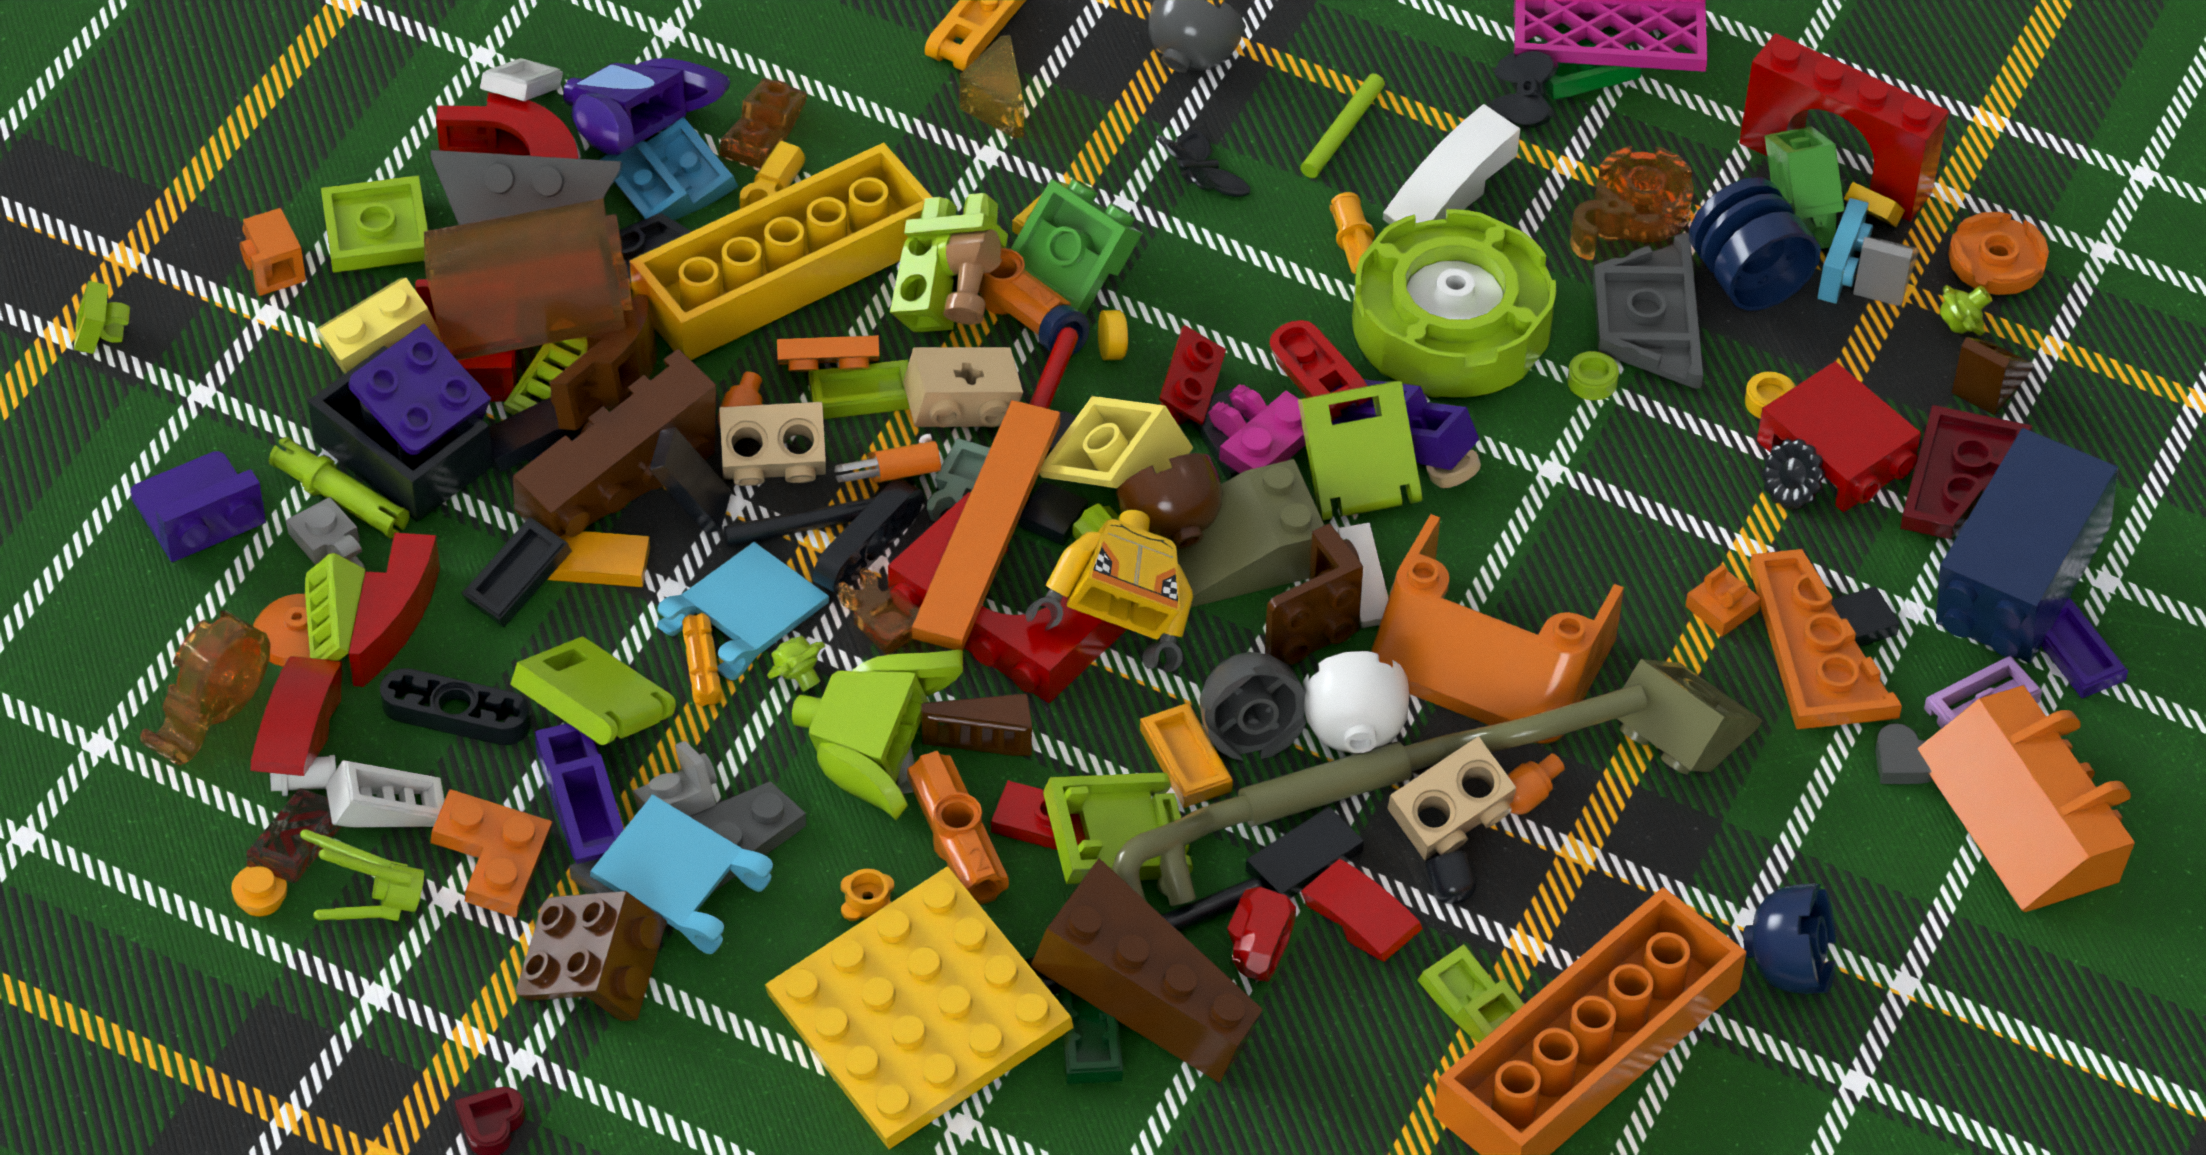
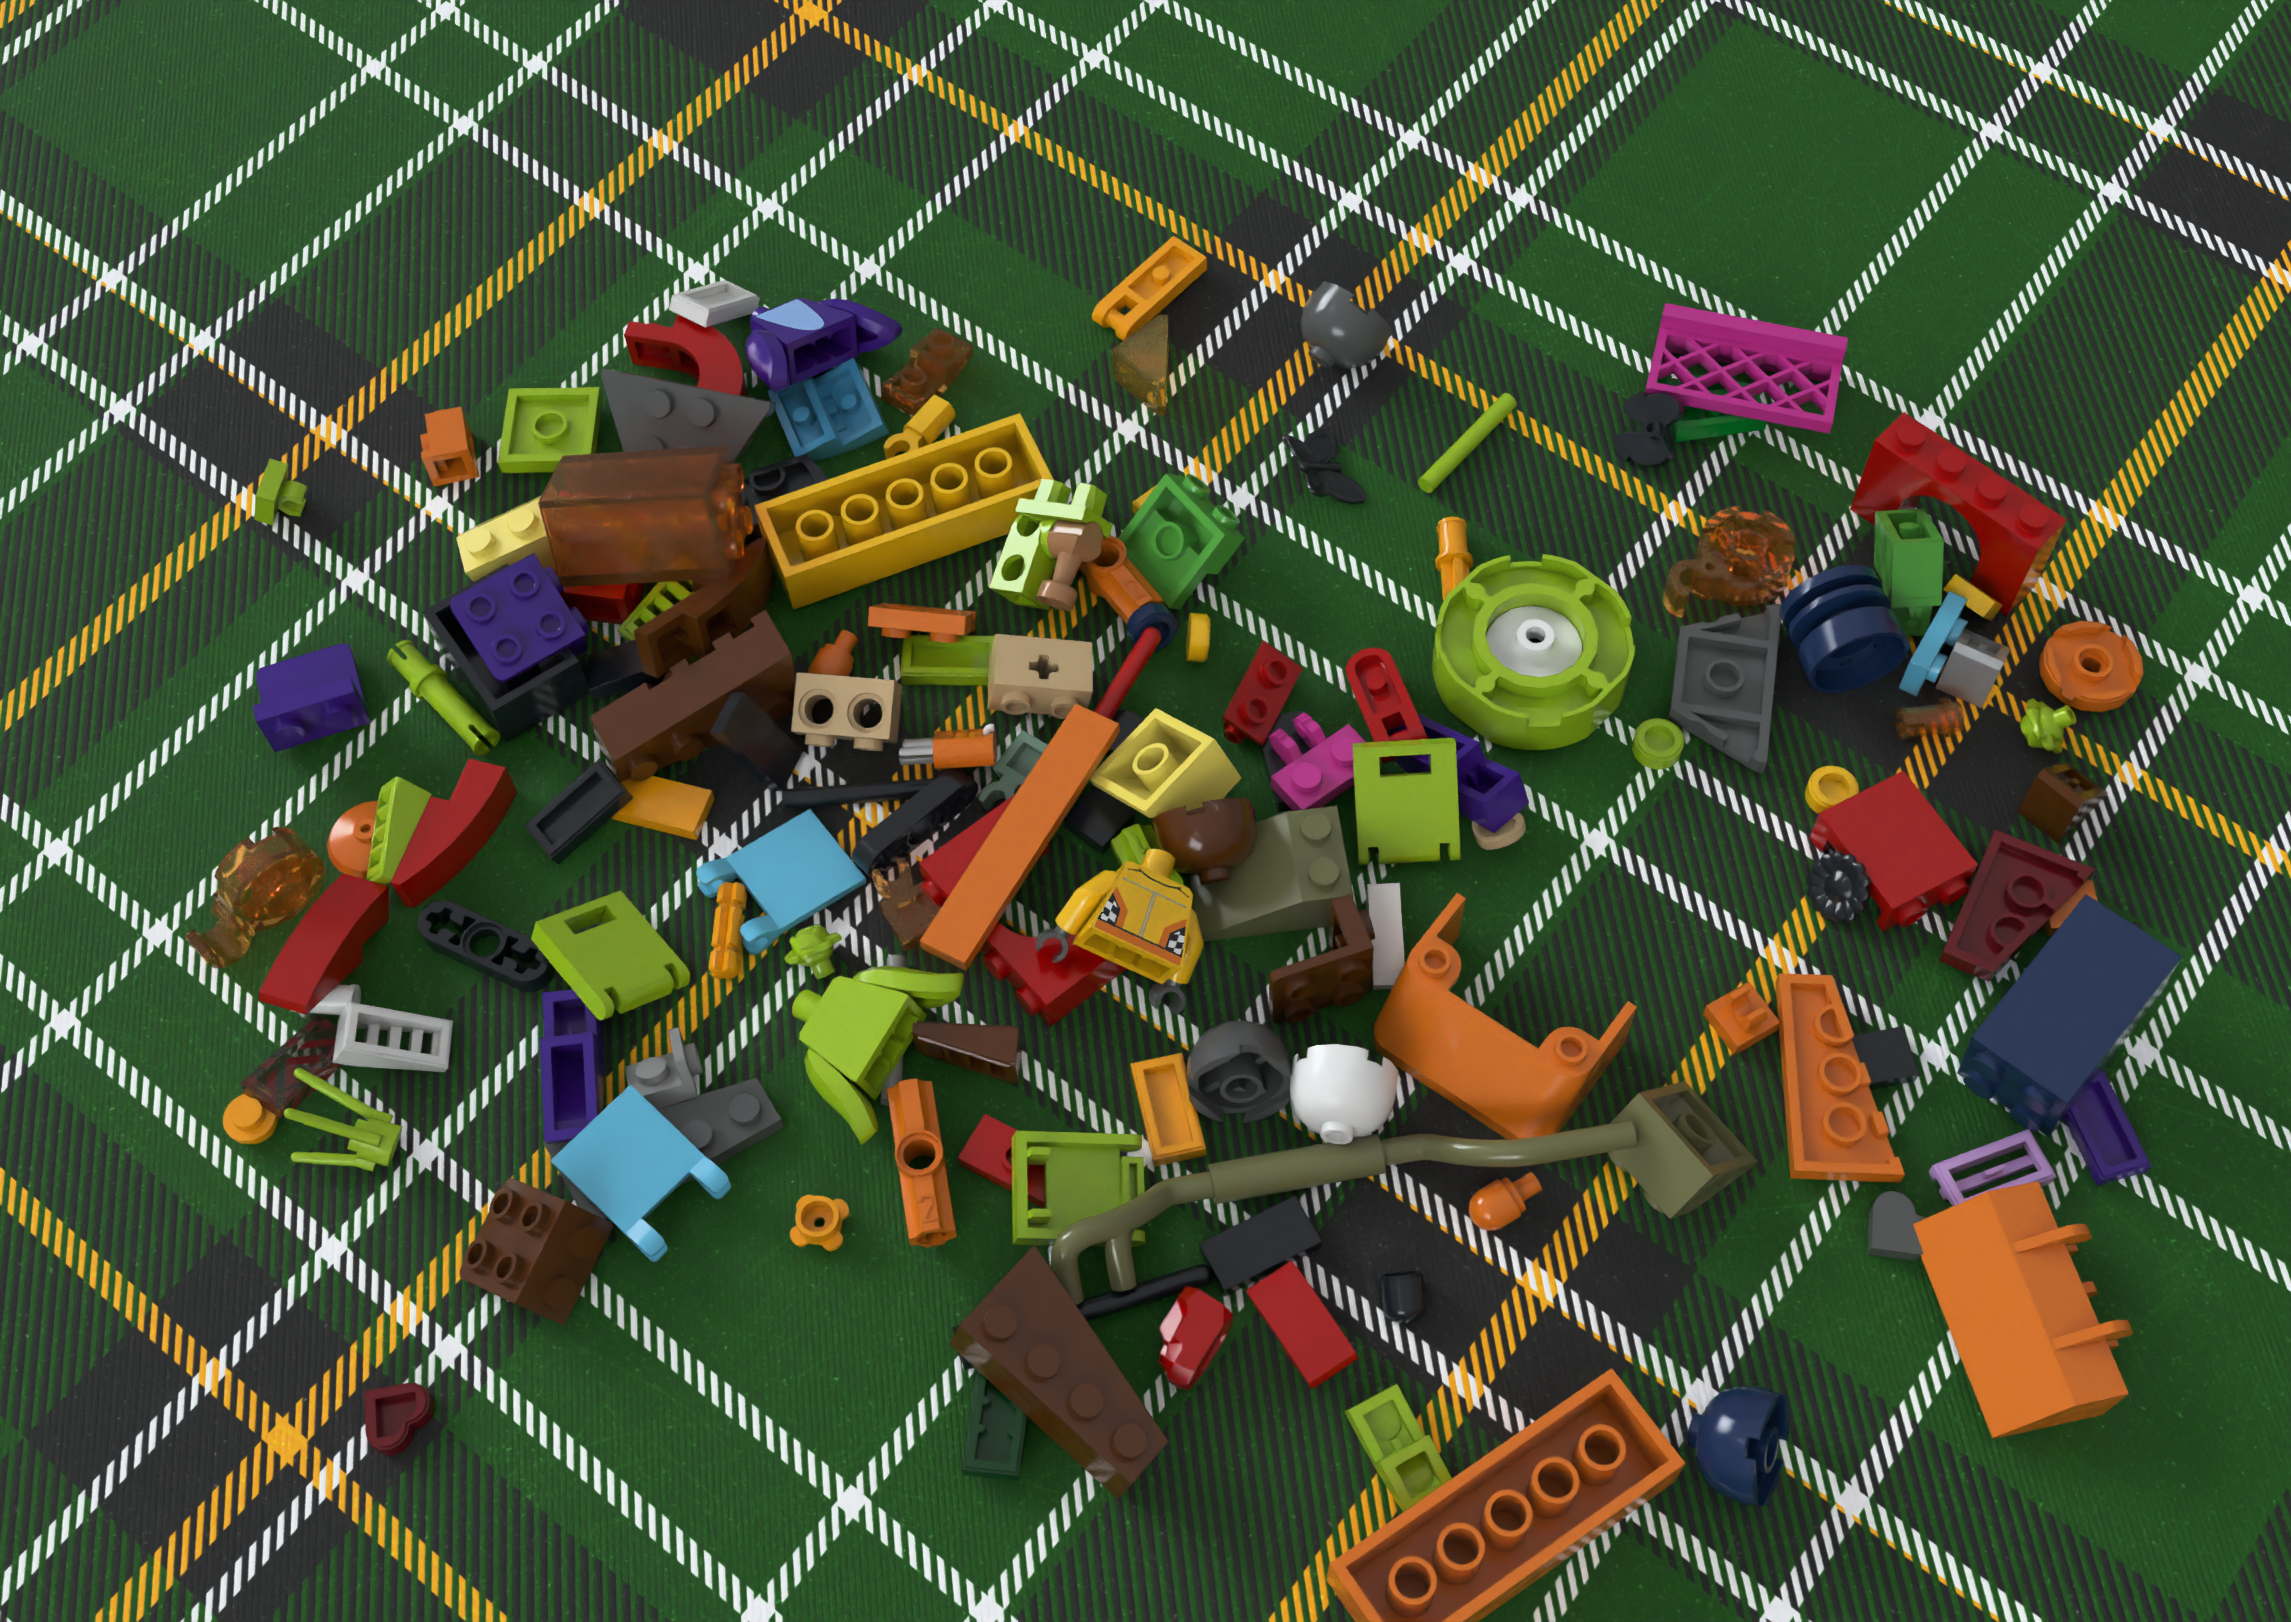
camera: 15 degrees right, 10 degrees up
(325, 531) = (419, 744): light grey plate -> none
(502, 839) = (491, 1107): orange plate -> none
(919, 1007) = (834, 1365): yellow plate -> none
(1443, 789) = (1411, 1203): tan brick -> none
(1457, 168) = (1563, 508): white slope -> none
(1854, 319) = (1930, 719): none -> clear orange pin

